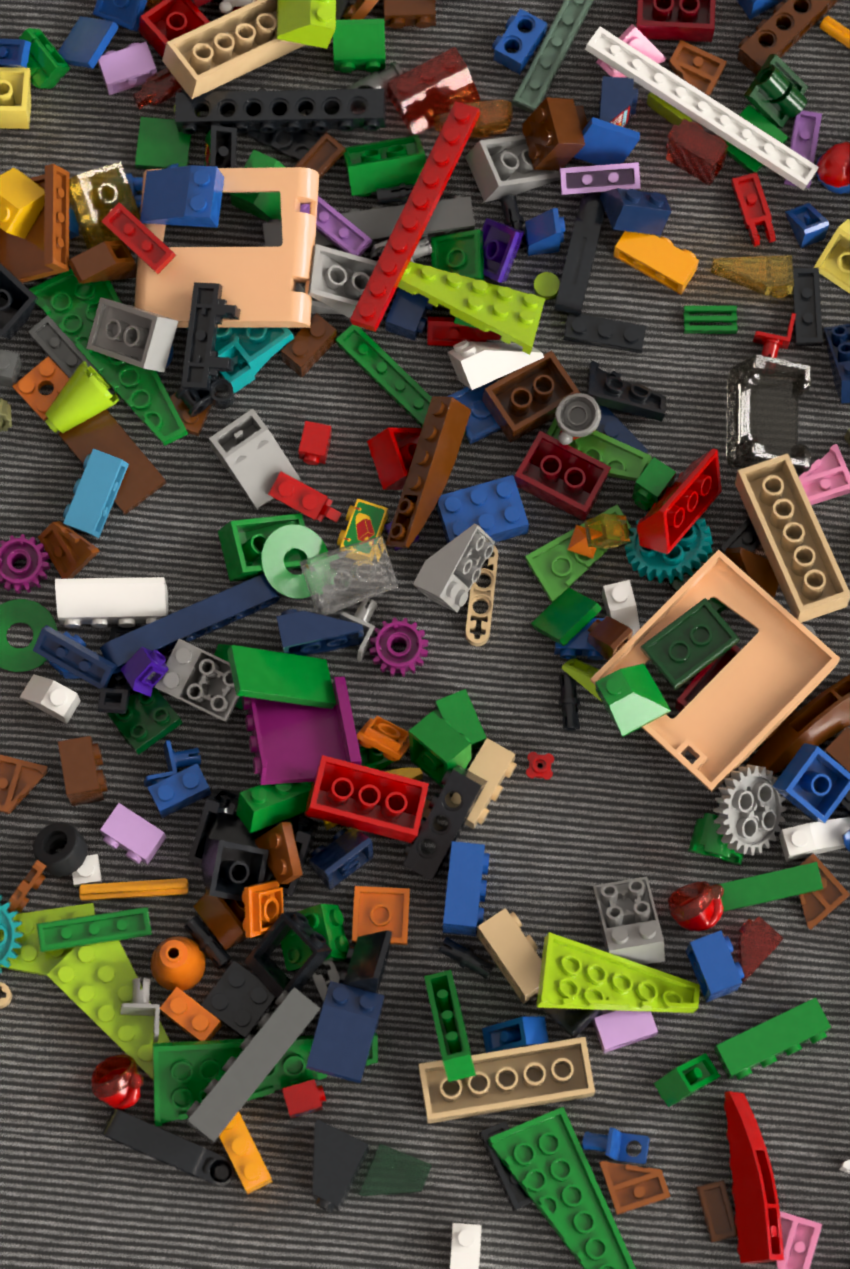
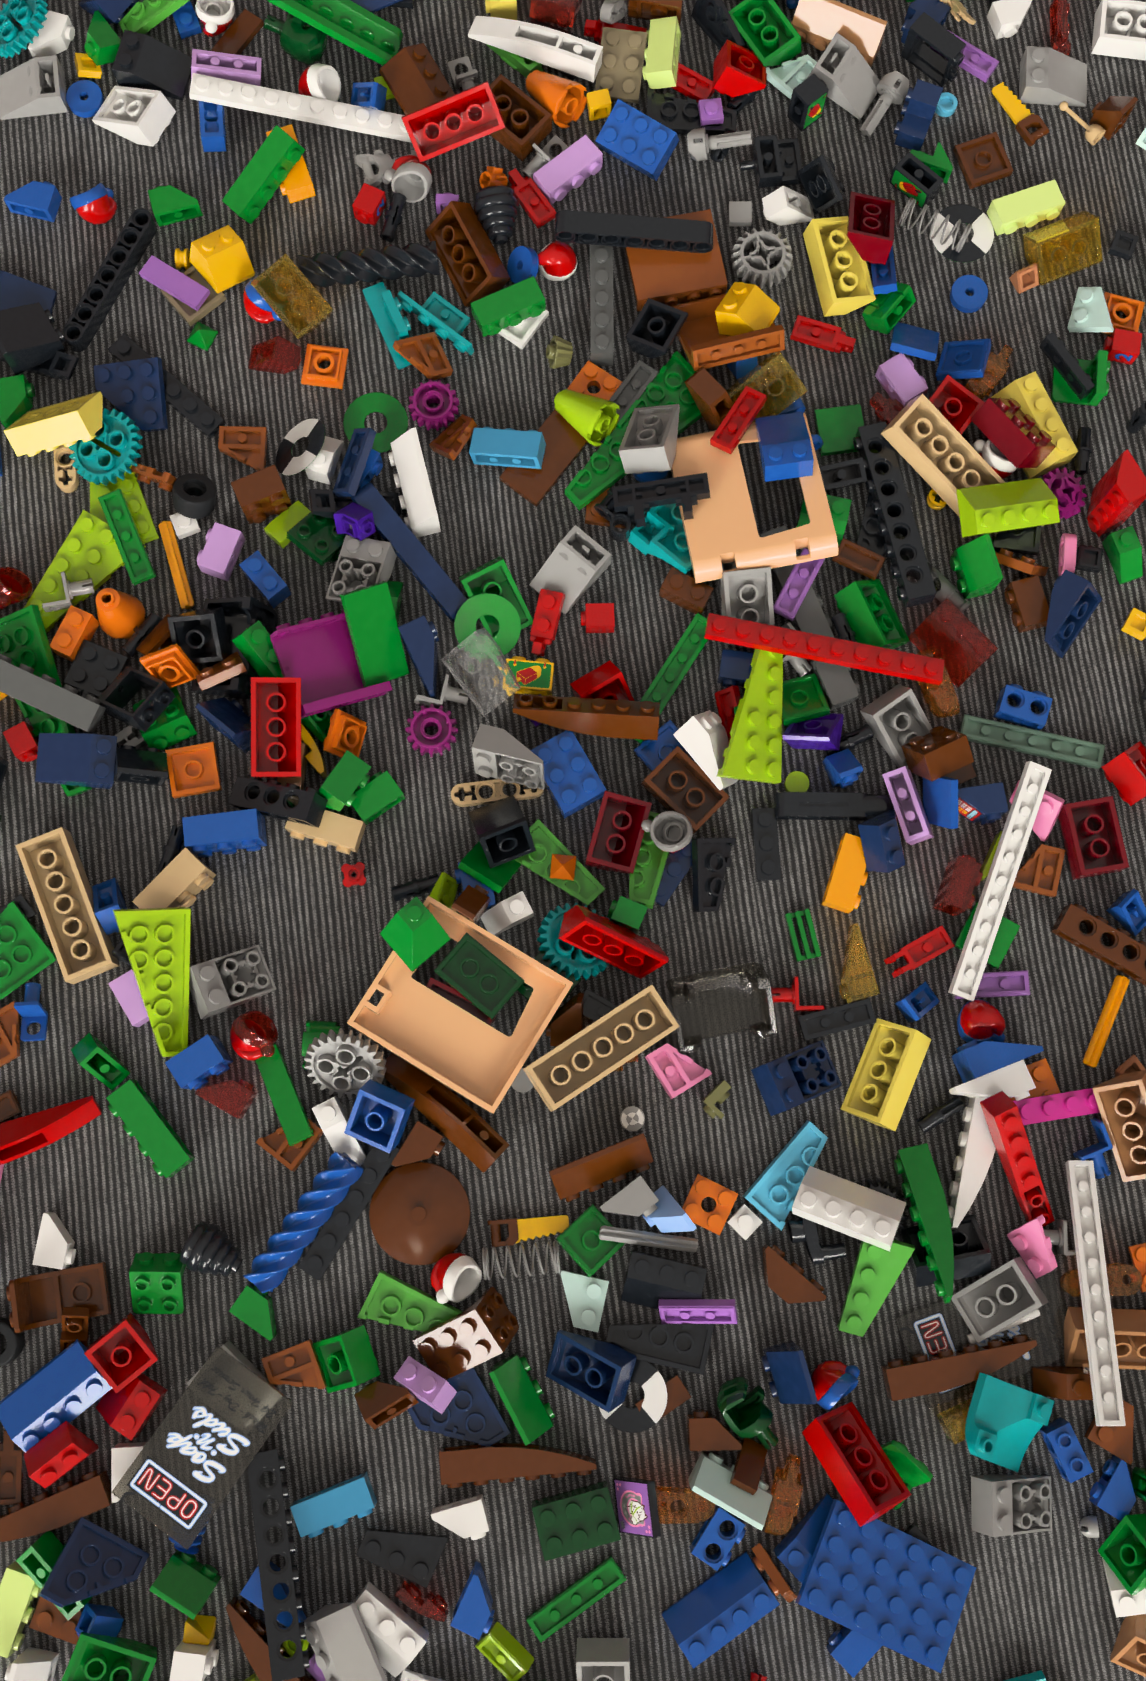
camera: 75 degrees right, 5 degrees up
(11, 710) = (291, 465): none -> sticker
(50, 136) = (821, 335): none -> red hinge
(118, 754) = (278, 528): none -> lime slope
(174, 761) = (291, 570): blue bracket -> none
(269, 73) = (933, 504): none -> yellow bush
(449, 1026) = (96, 844): green brick -> none
(531, 592) = (502, 831): none -> black slope
(607, 531) = (572, 882): clear yellow brick -> none
(777, 92) = (1038, 947): dark green plate -> none

